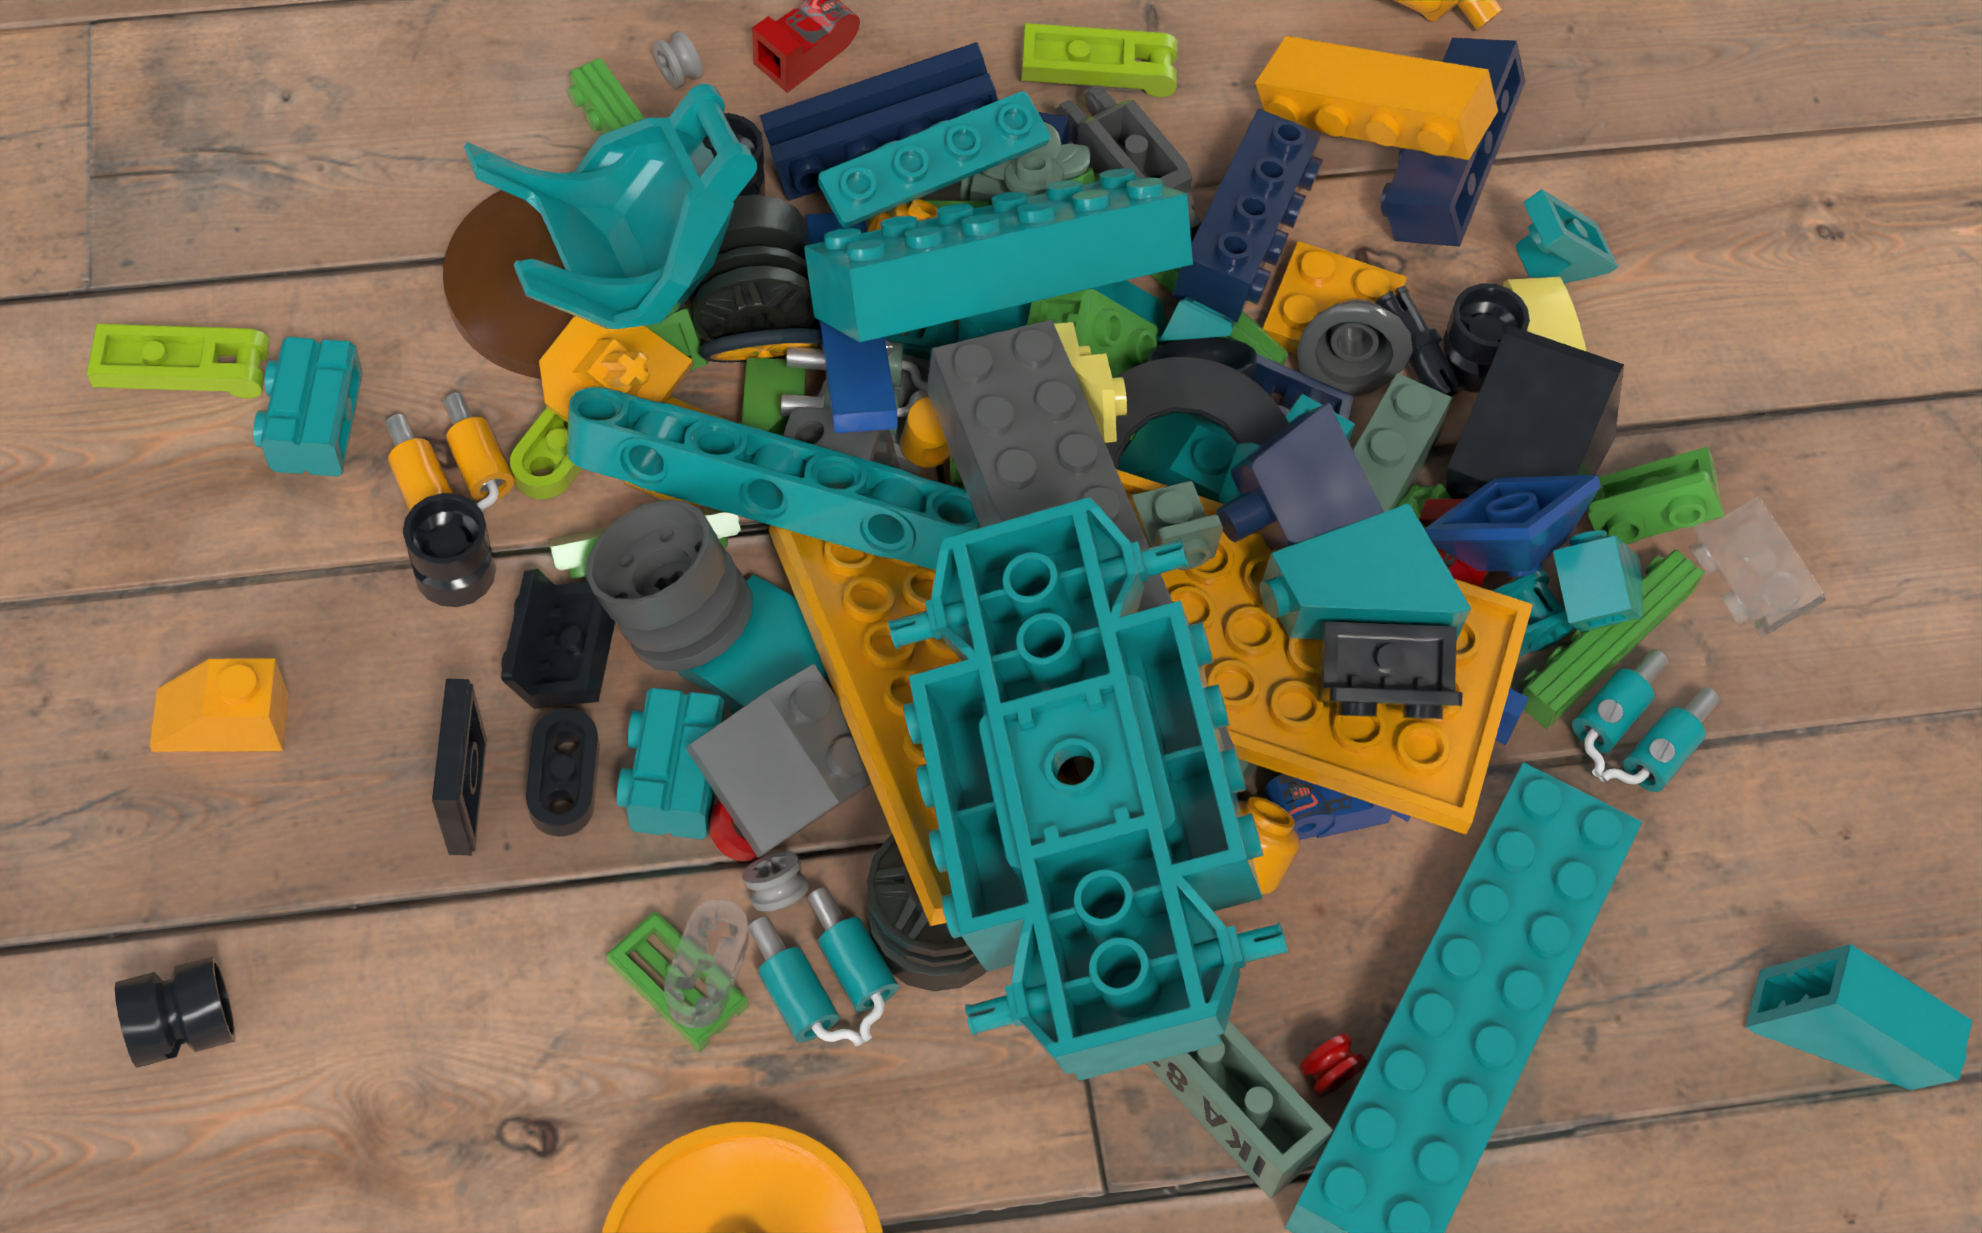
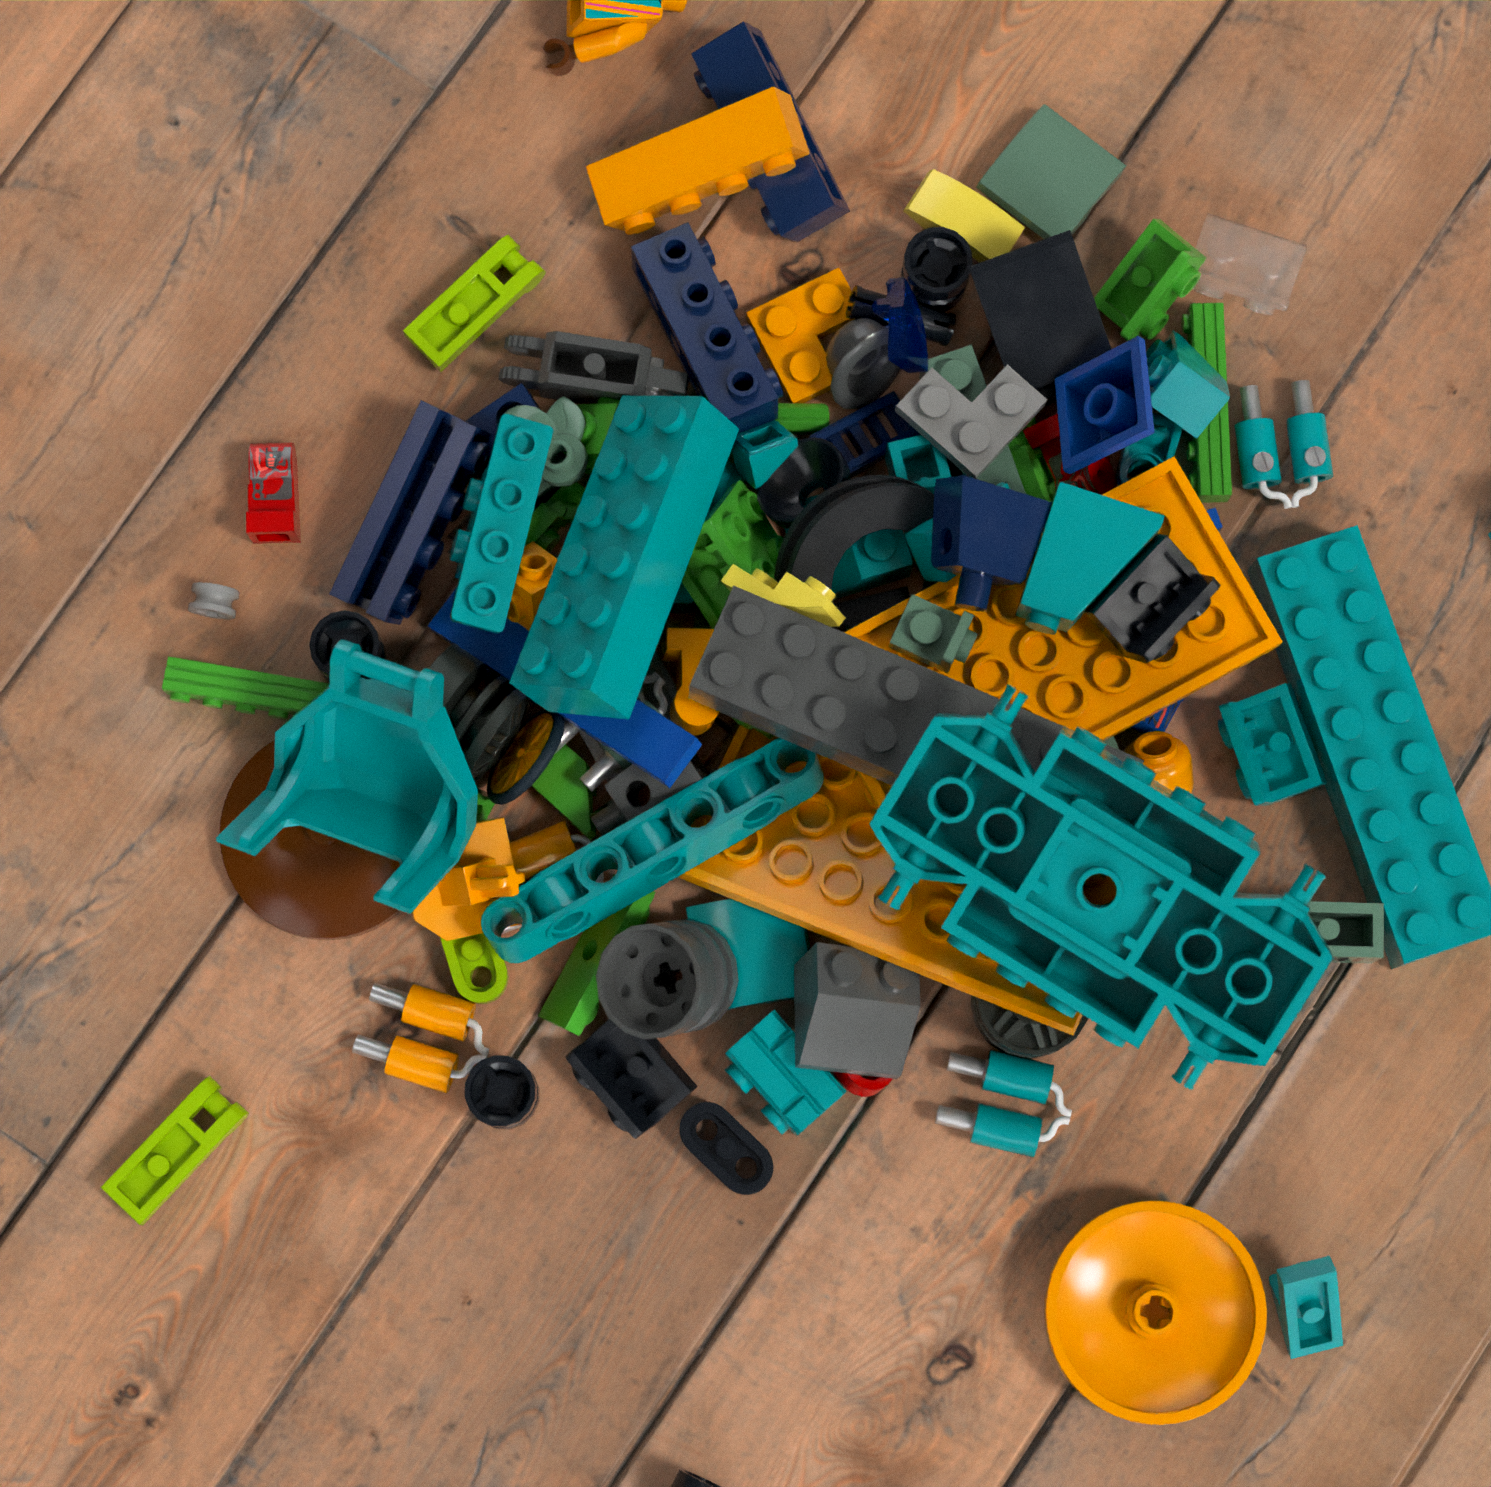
camera: 45 degrees left, 20 degrees up
(222, 708) = (488, 1333): light orange slope -> none
(309, 406) = (296, 1093): teal brick -> none
(459, 767) = (681, 1216): black tile -> none
(651, 992) = (974, 1191): bright green tile -> none
(693, 957) = (955, 1164): clear beam -> none
(775, 881) = (933, 1086): light grey bush -> none
(1332, 1064) = (1329, 851): red bush -> none
(1374, 930) = (1271, 746): none -> teal bracket
(1394, 447) = (967, 430): none -> light grey plate
(1406, 333) = (906, 328): none -> clear blue slope
(1563, 242) = (908, 137): teal slope -> none
(1665, 368) = (1050, 175): none -> sand green slope

